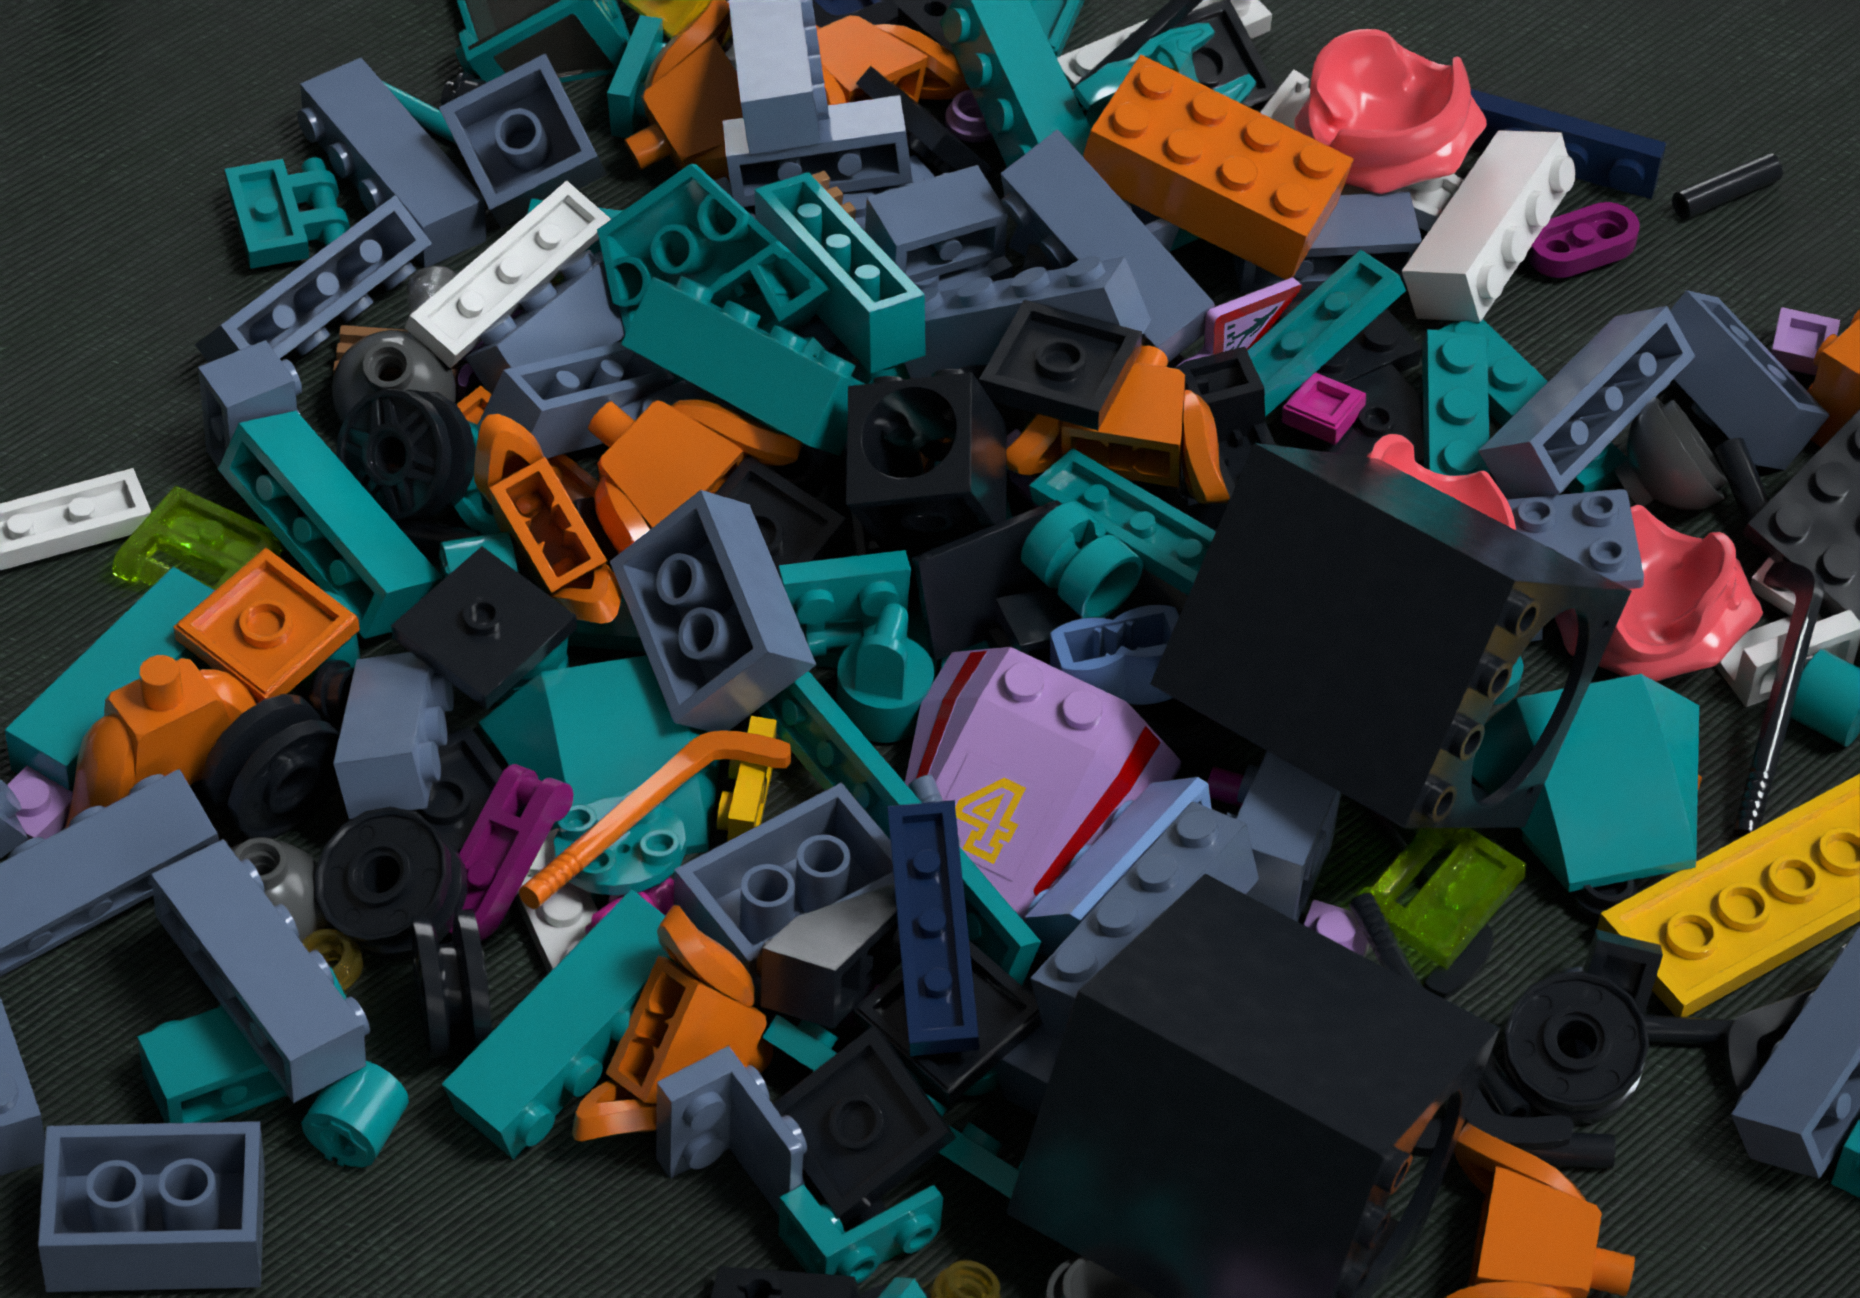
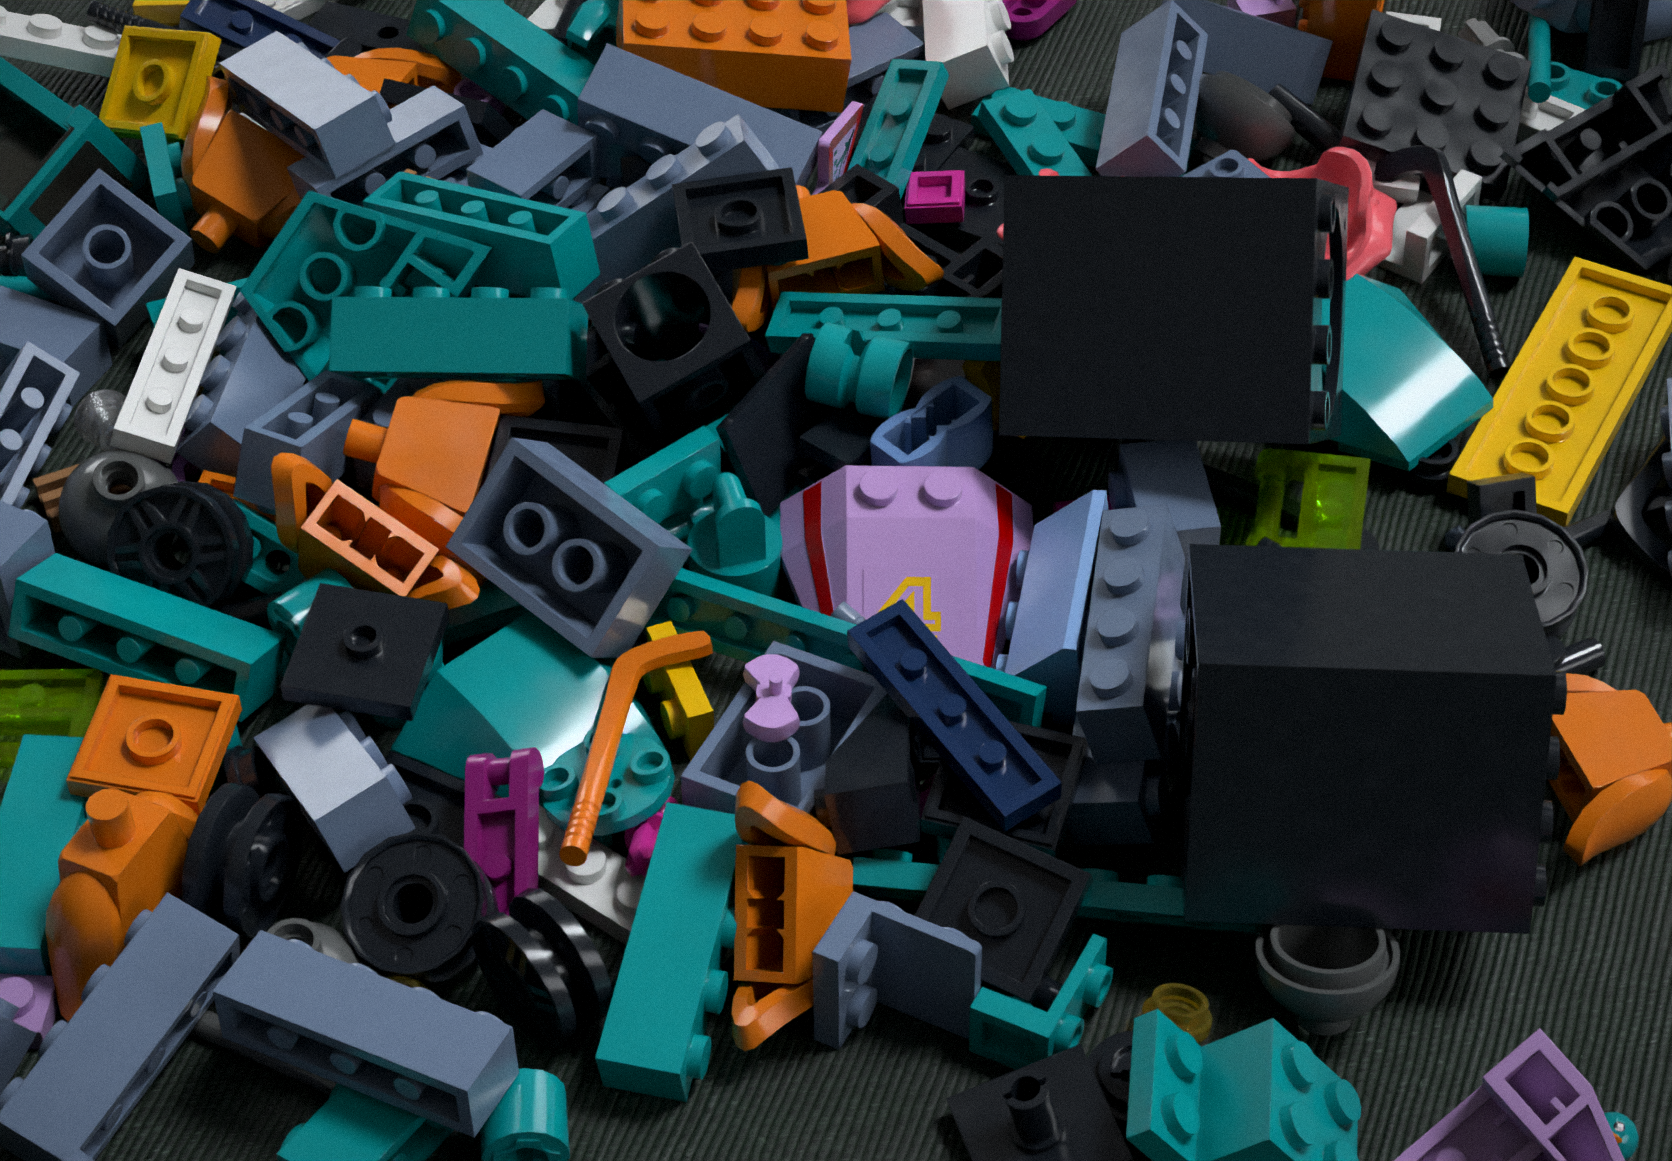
camera: 25 degrees left, 5 degrees down
(786, 852) = (772, 715): none -> lavender piece

